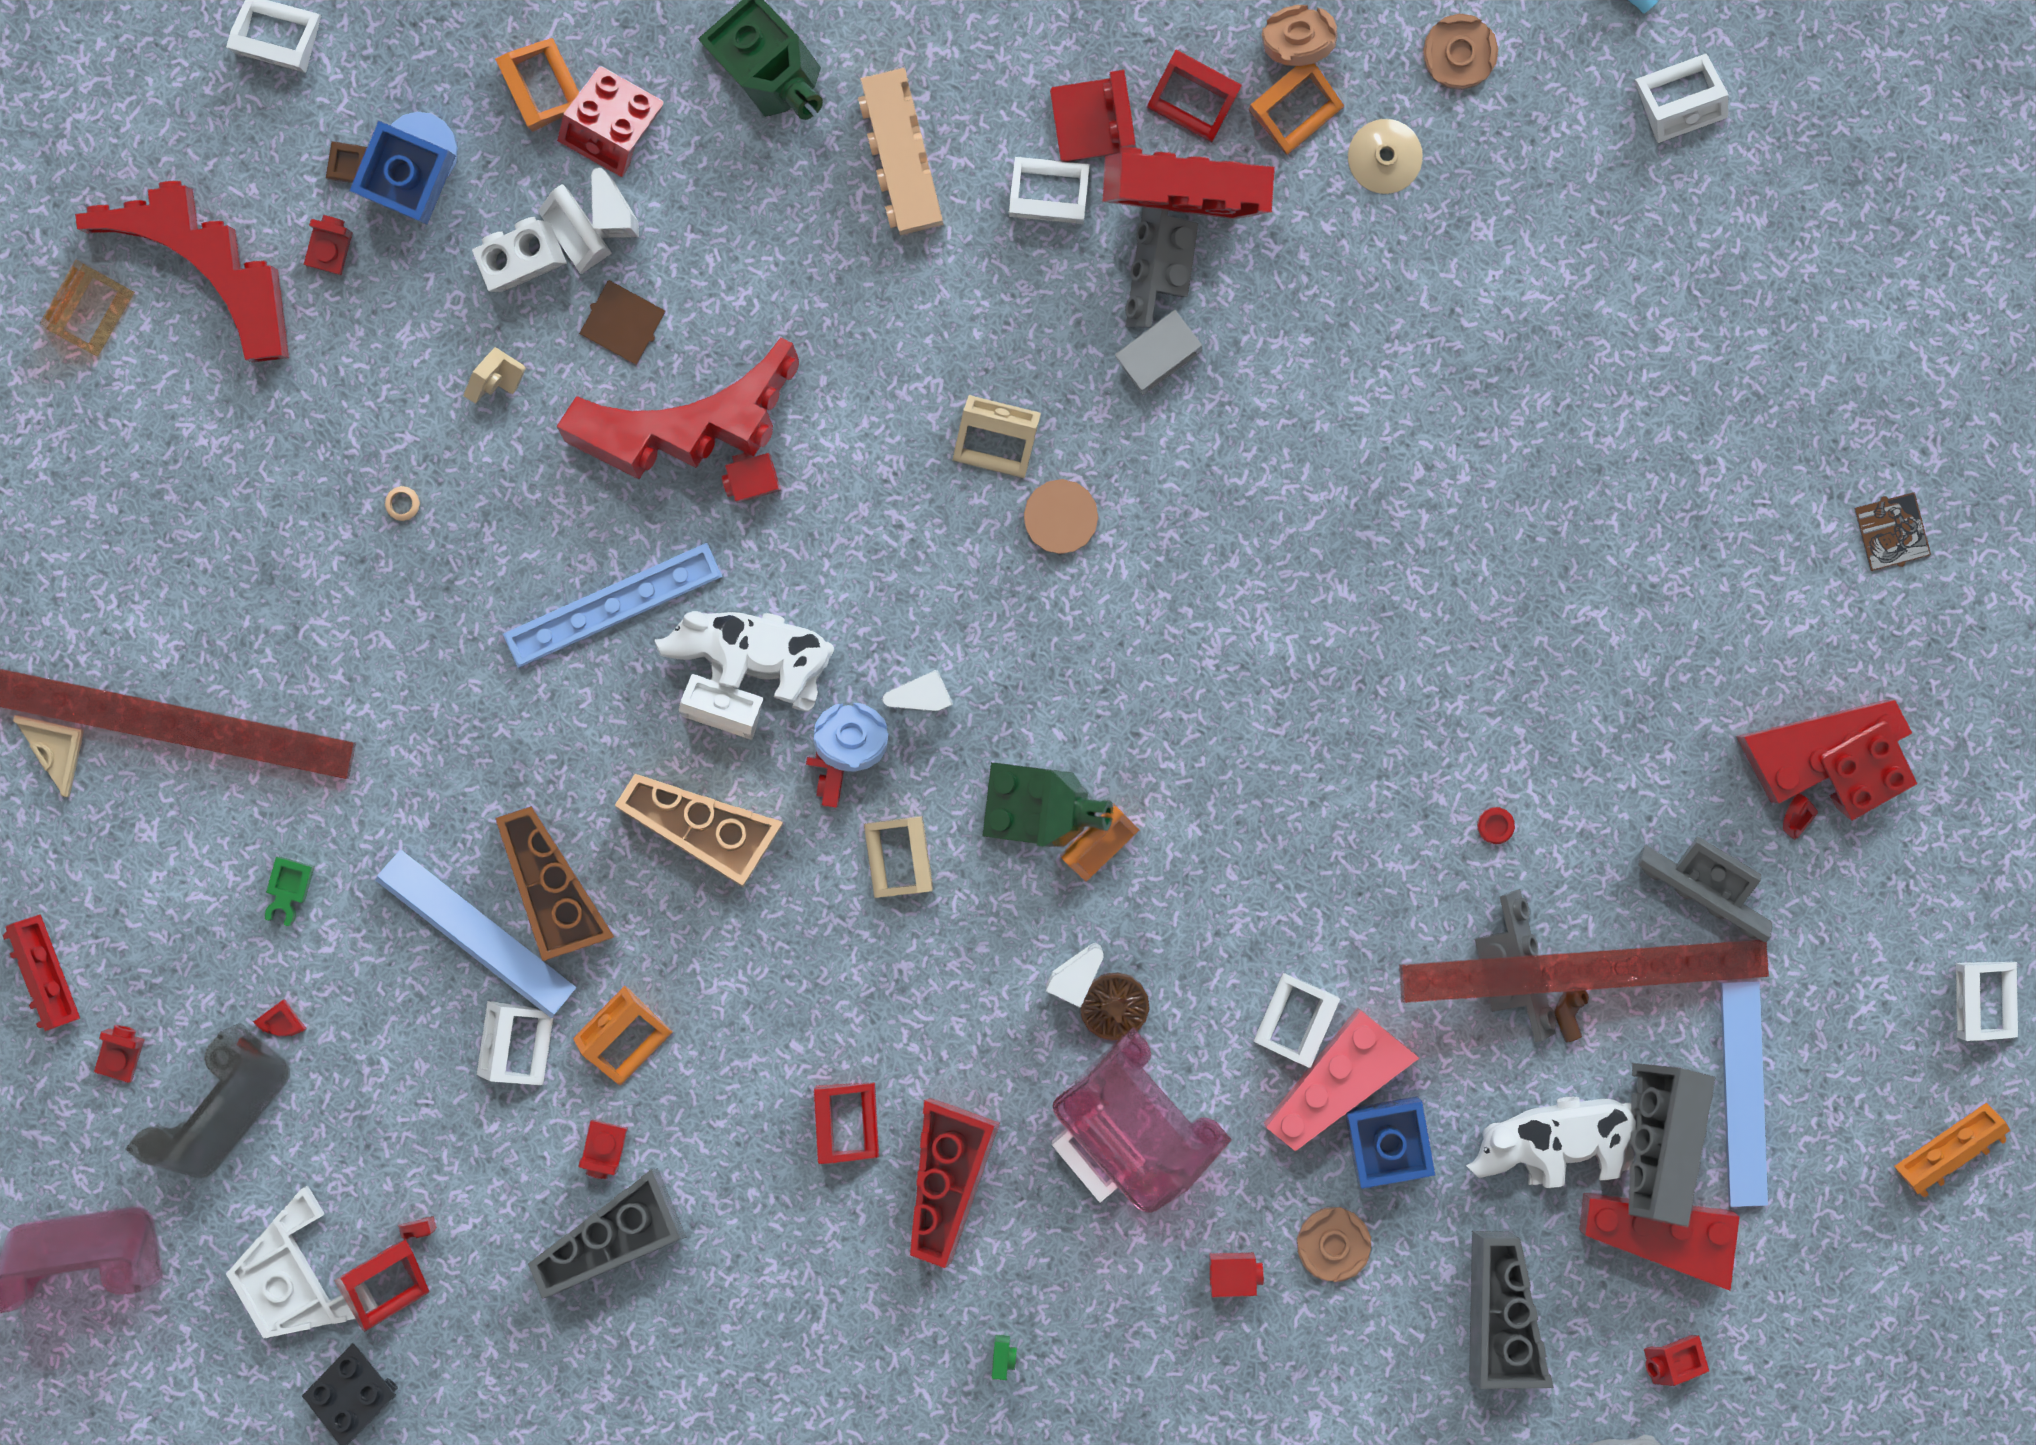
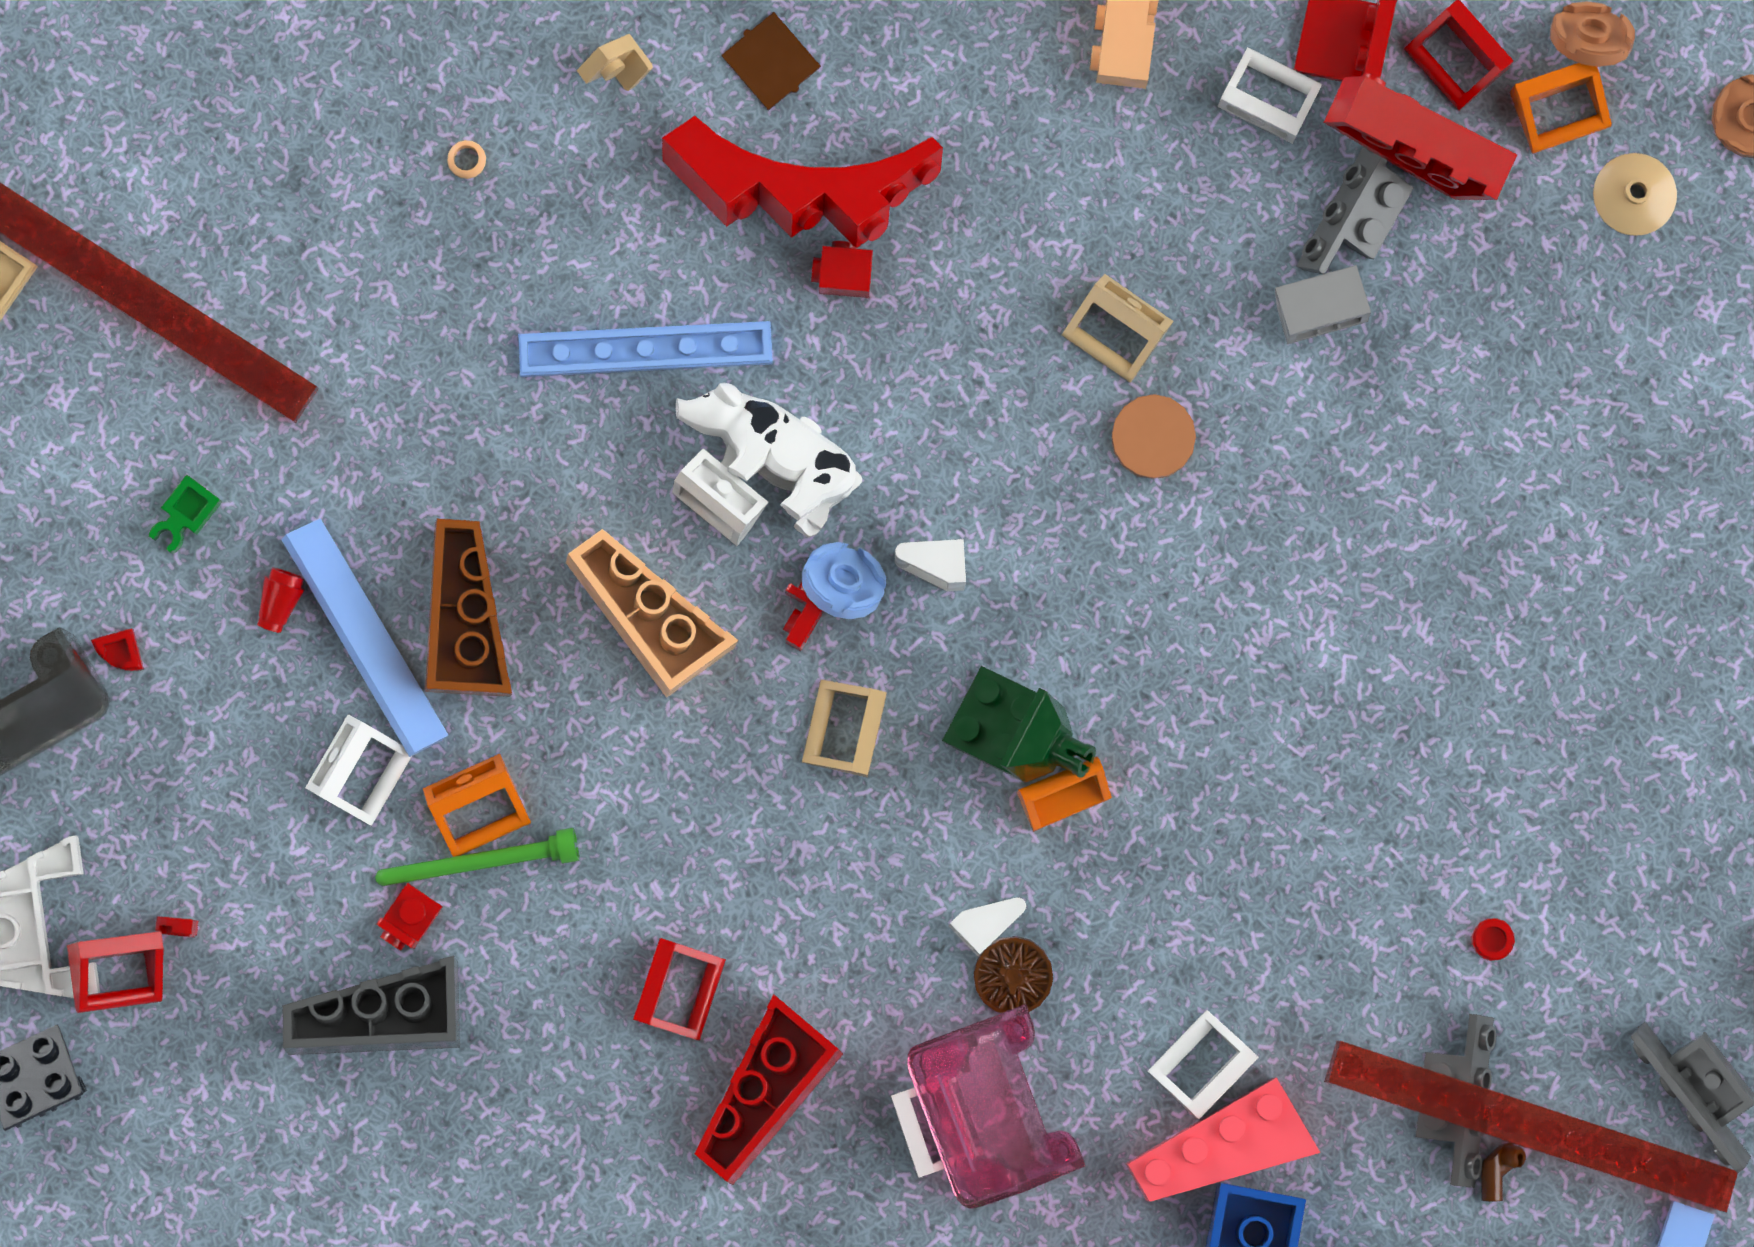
camera: 20 degrees right, 5 degrees down
(393, 929) = (279, 598): none -> red cone
(701, 1044) = (558, 847): none -> bright green piece

